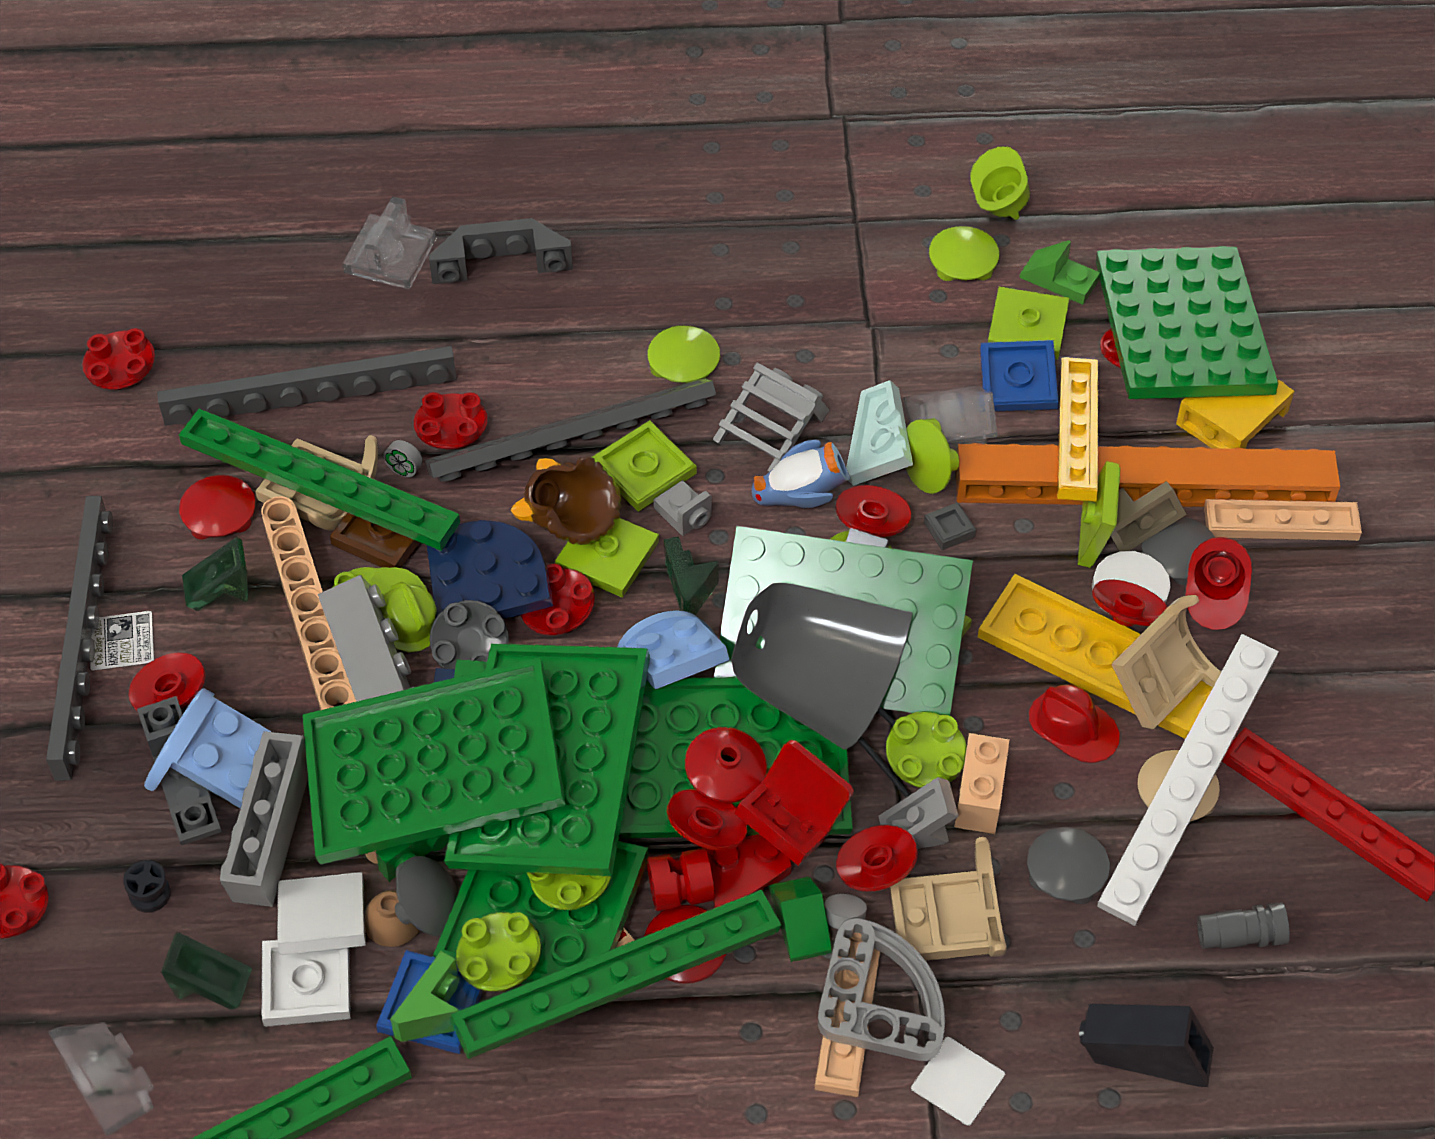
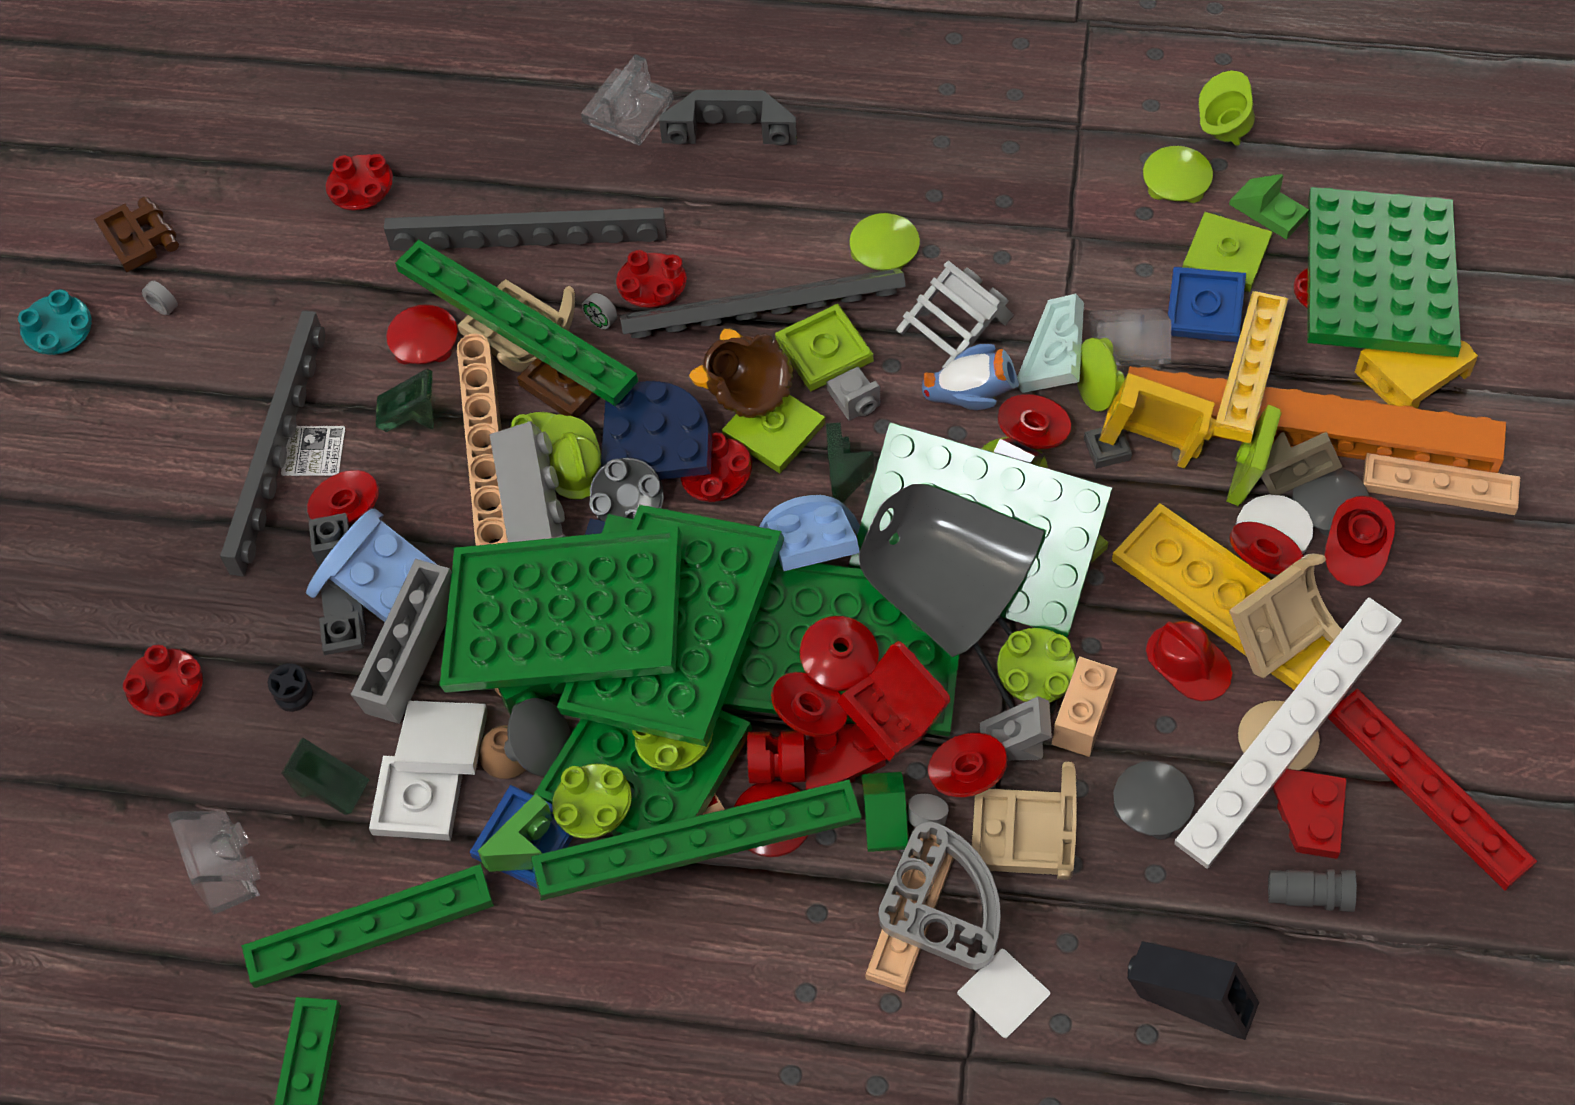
camera: 15 degrees right, 5 degrees up
(1000, 487) = (1161, 416): none -> yellow panel
(1227, 853) = (1312, 810): none -> red wing

